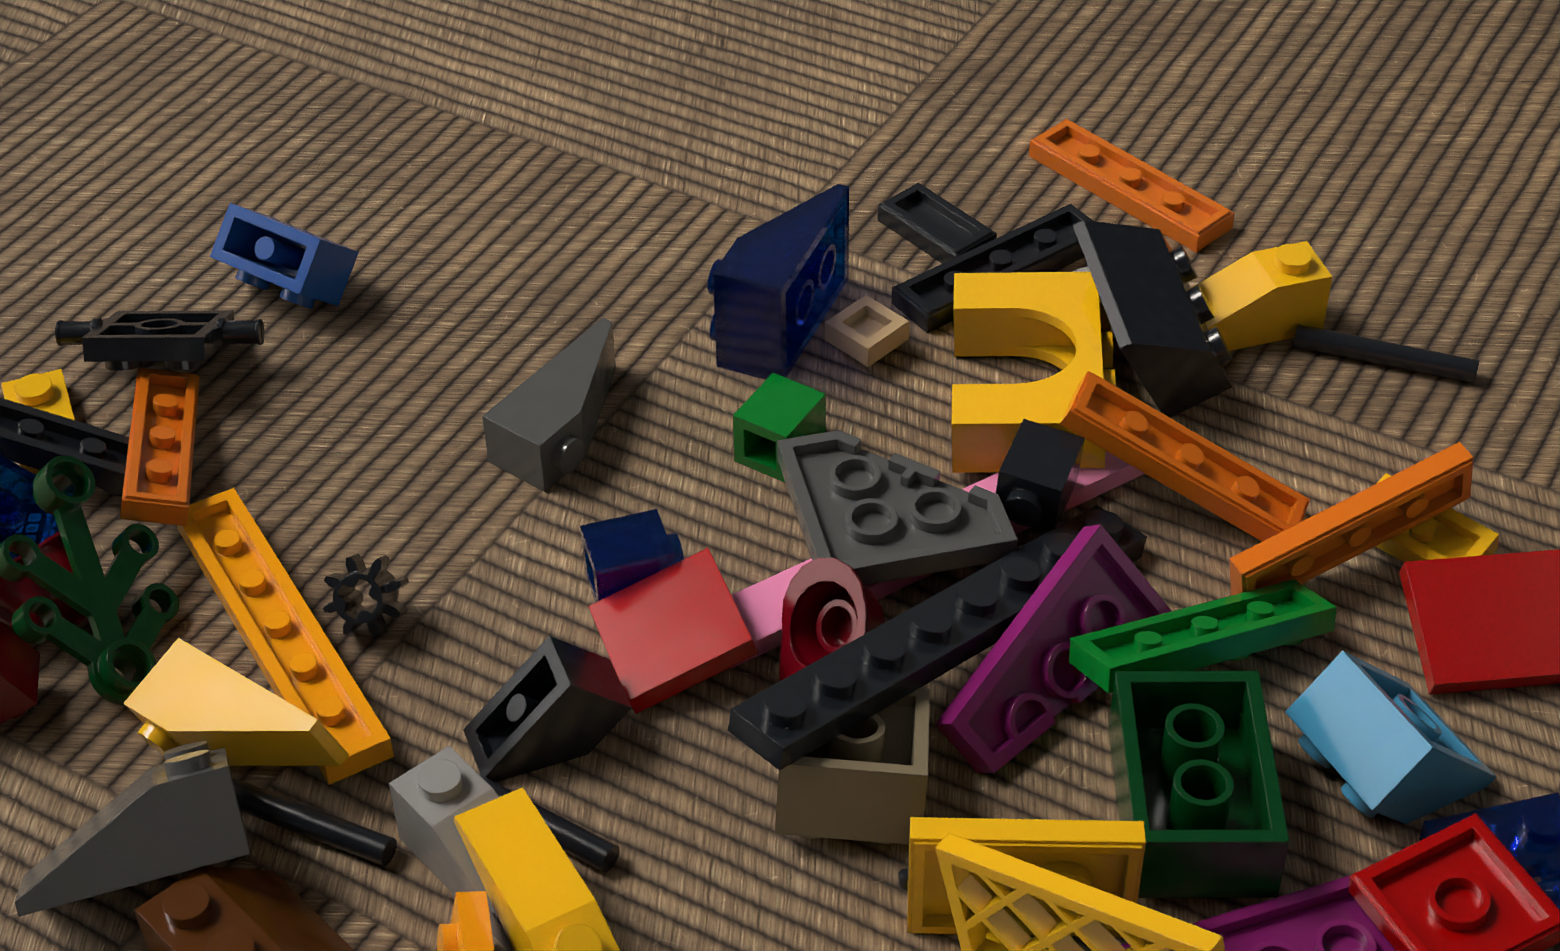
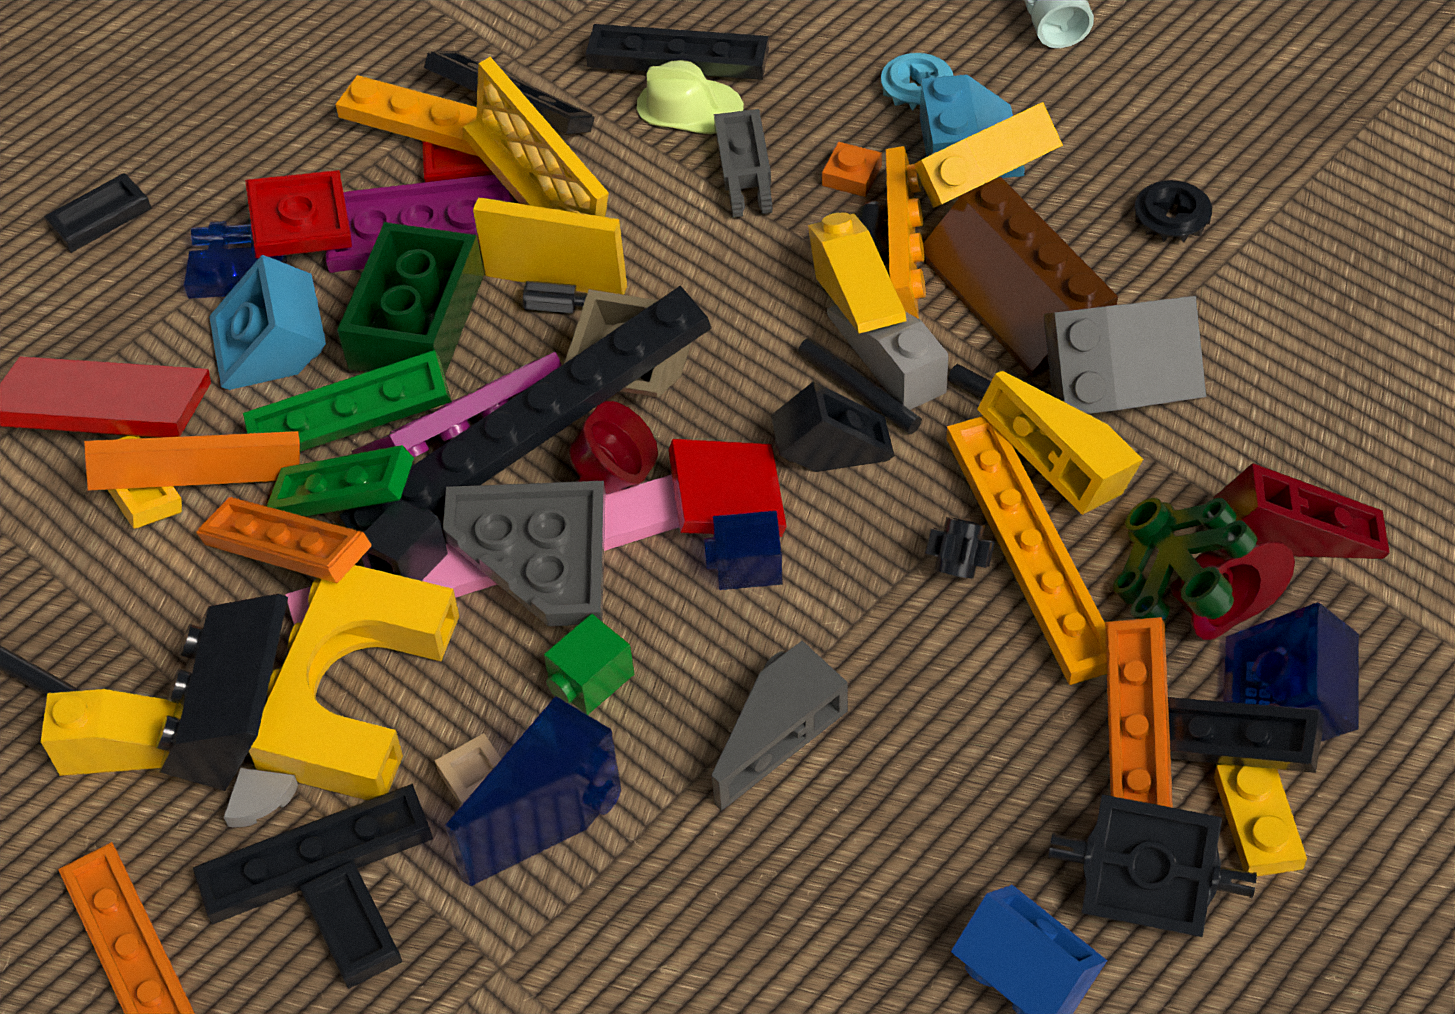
camera: 165 degrees left, 10 degrees up
(1150, 525) = (342, 482): none -> green plate

